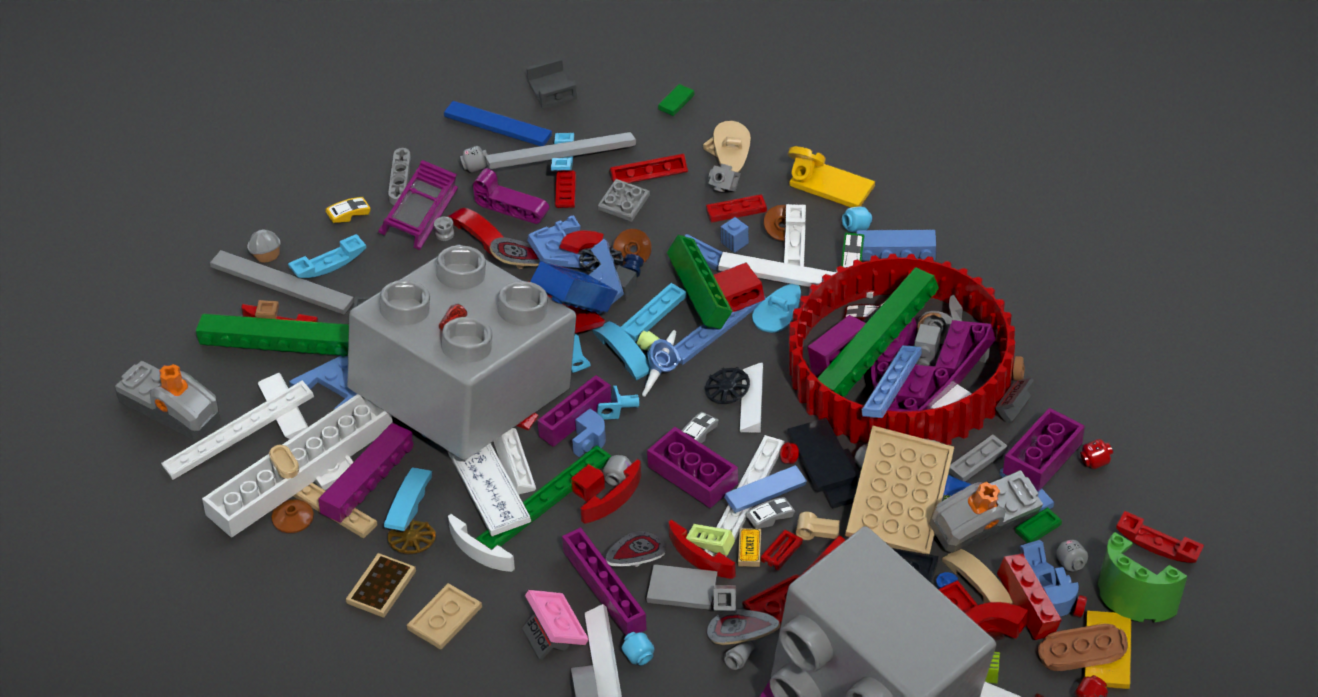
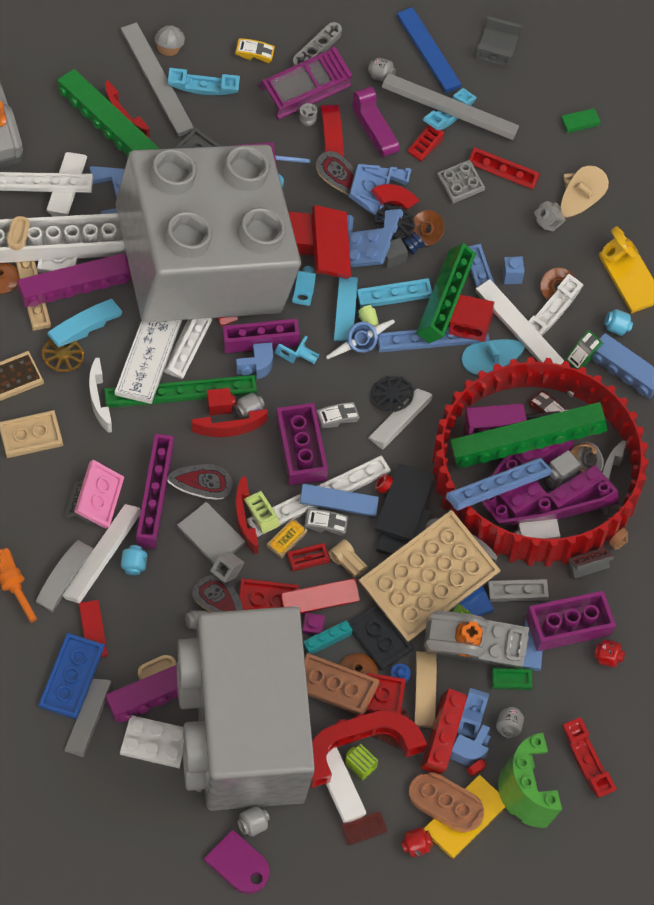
camera: 30 degrees right, 15 degrees up
(267, 309) = (119, 97): medium nougat tile -> none
(453, 312) = (198, 206): clear red cone -> none
(574, 287) = (328, 237): blue brick -> none
(736, 208) = (539, 247): red tile -> none

